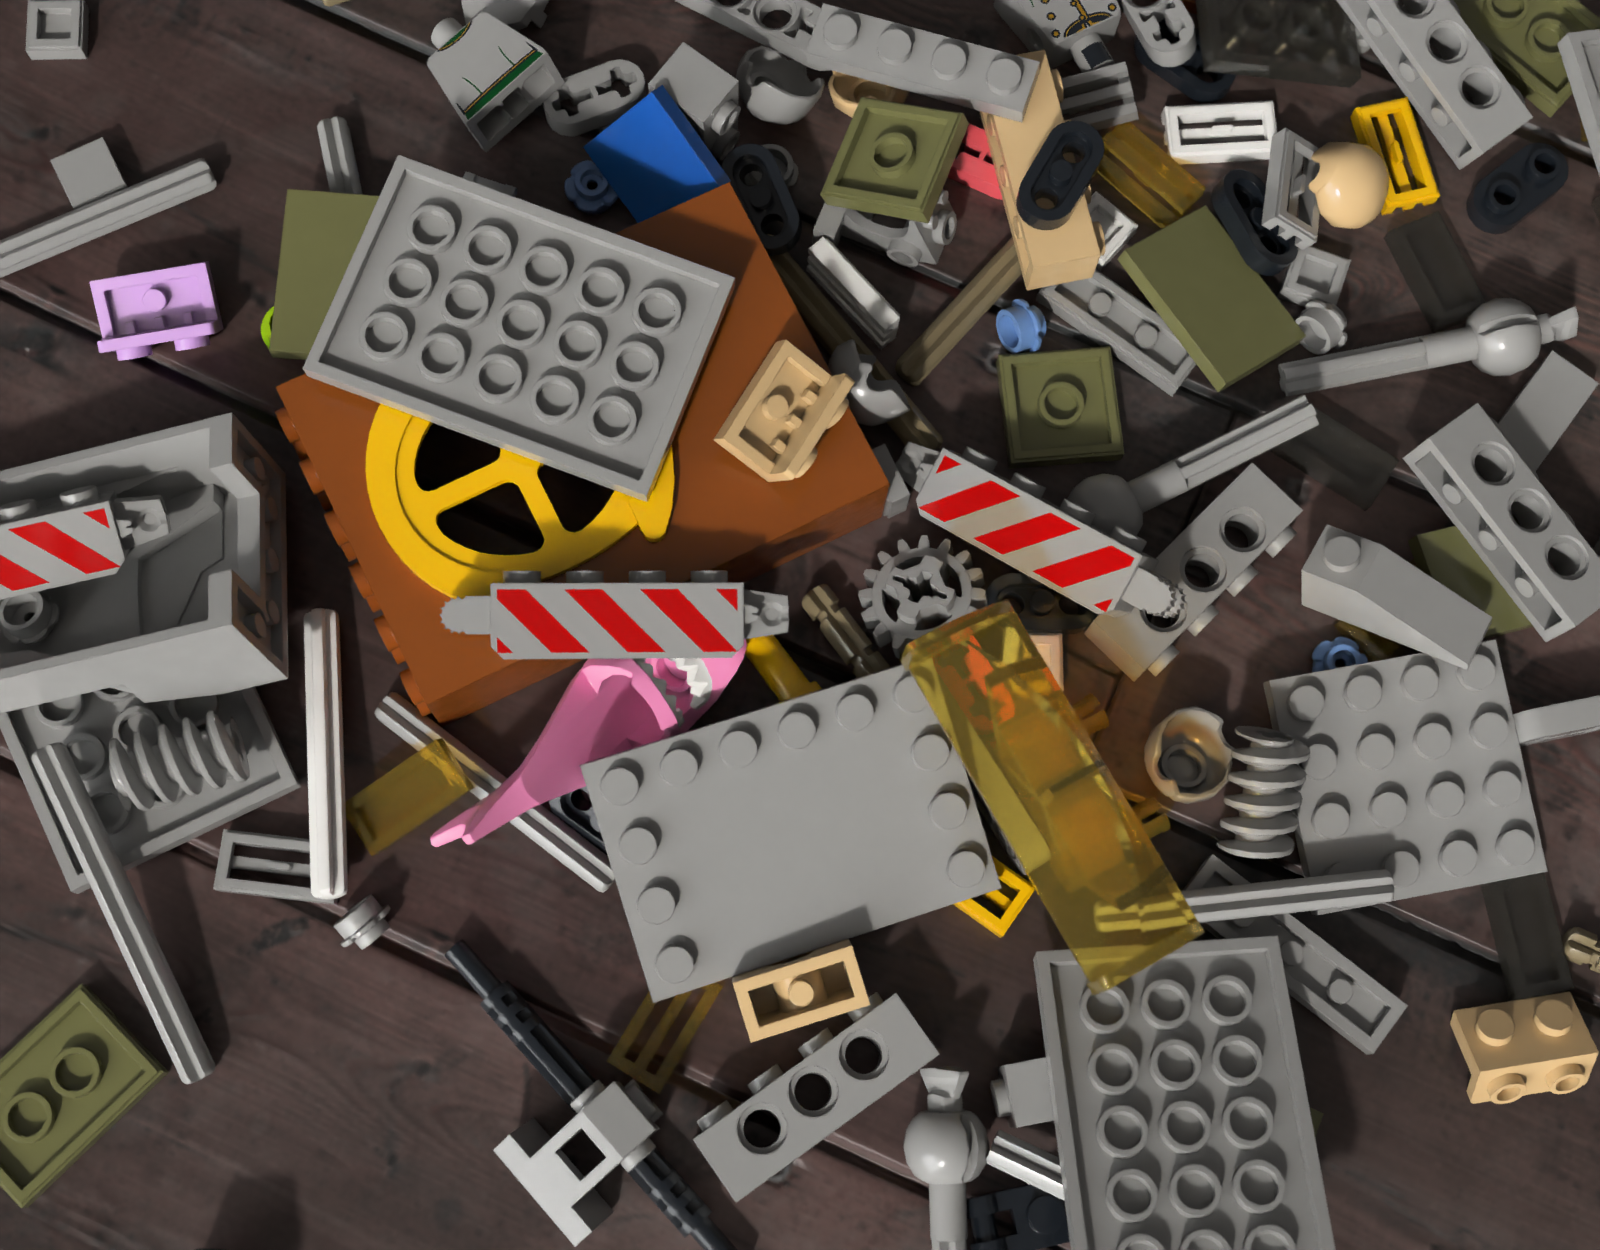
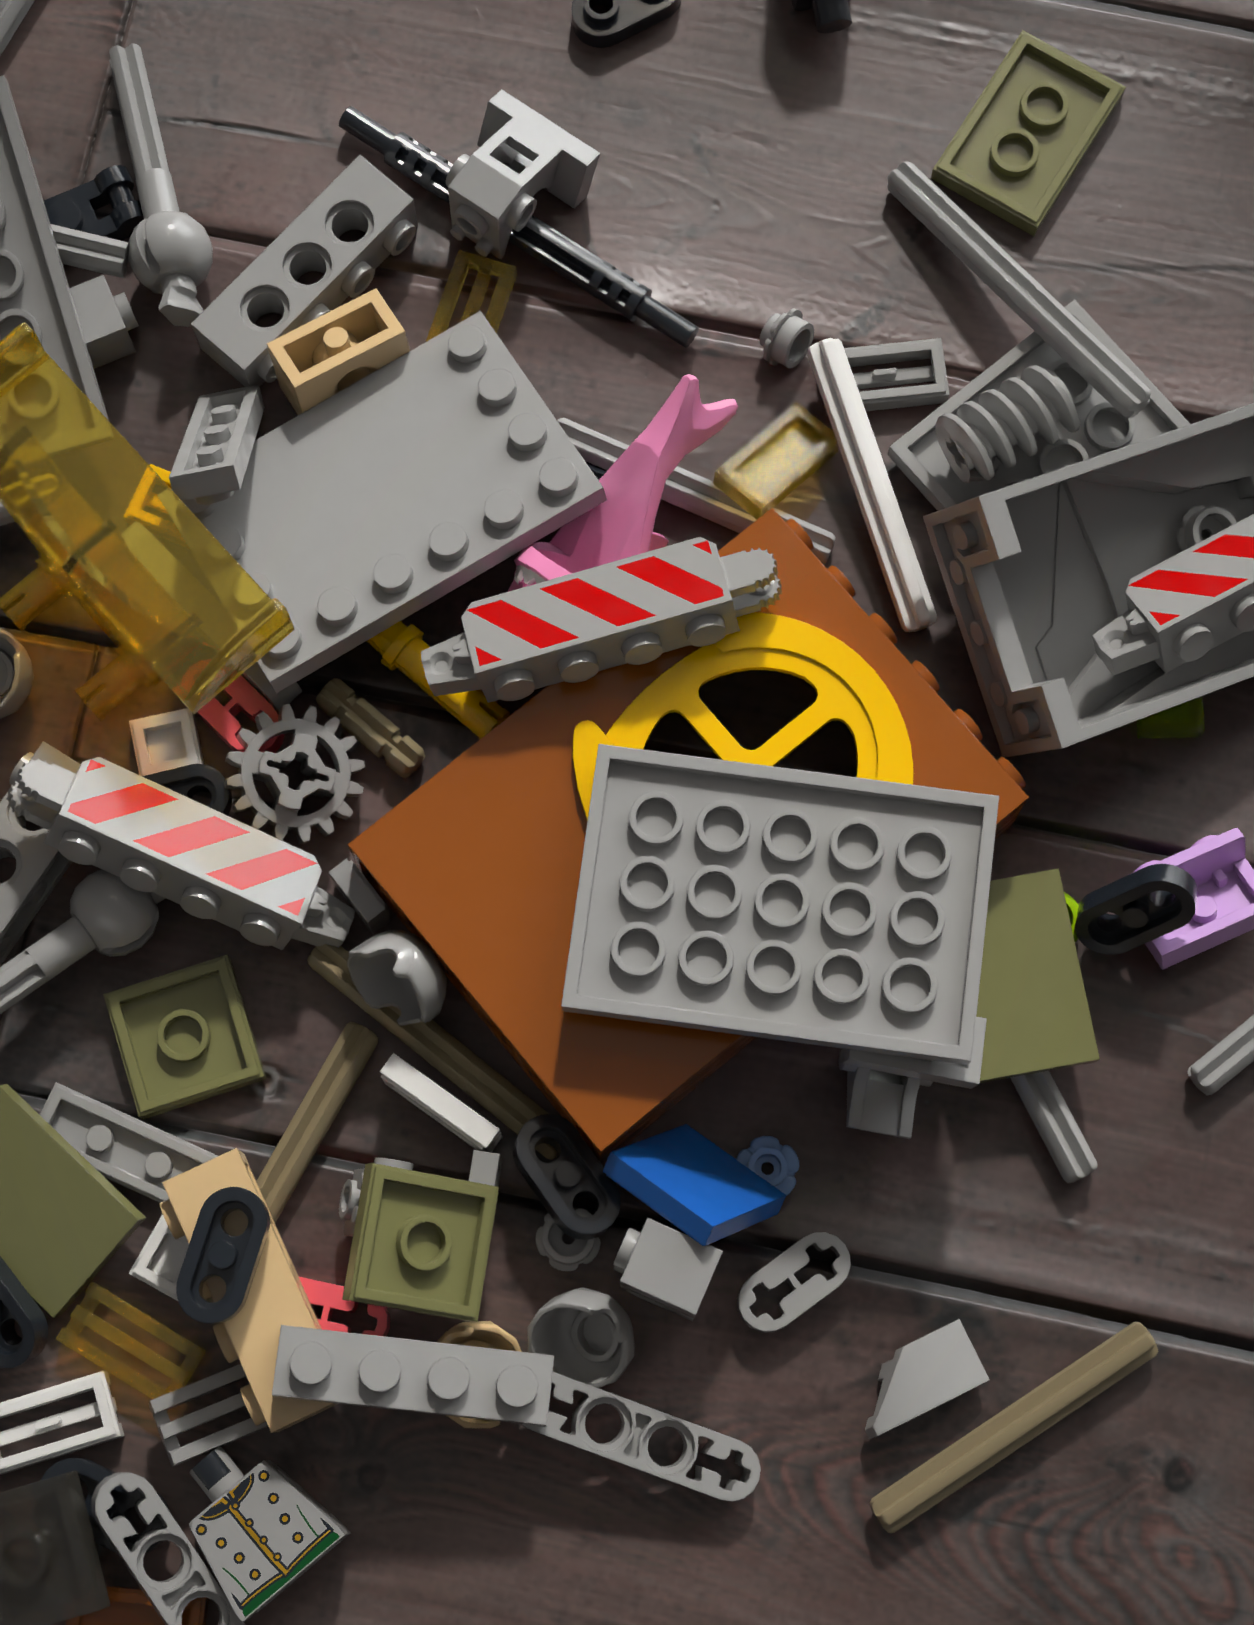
camera: 175 degrees right, 0 degrees up
(212, 297) = (1144, 908): none -> black plate
(491, 75) = (921, 1262): light grey torso -> none
(784, 414) = (472, 875): tan bracket -> none
(936, 898) = (217, 445): none -> light grey plate
(1021, 327) = (243, 1114): medium blue plate -> none

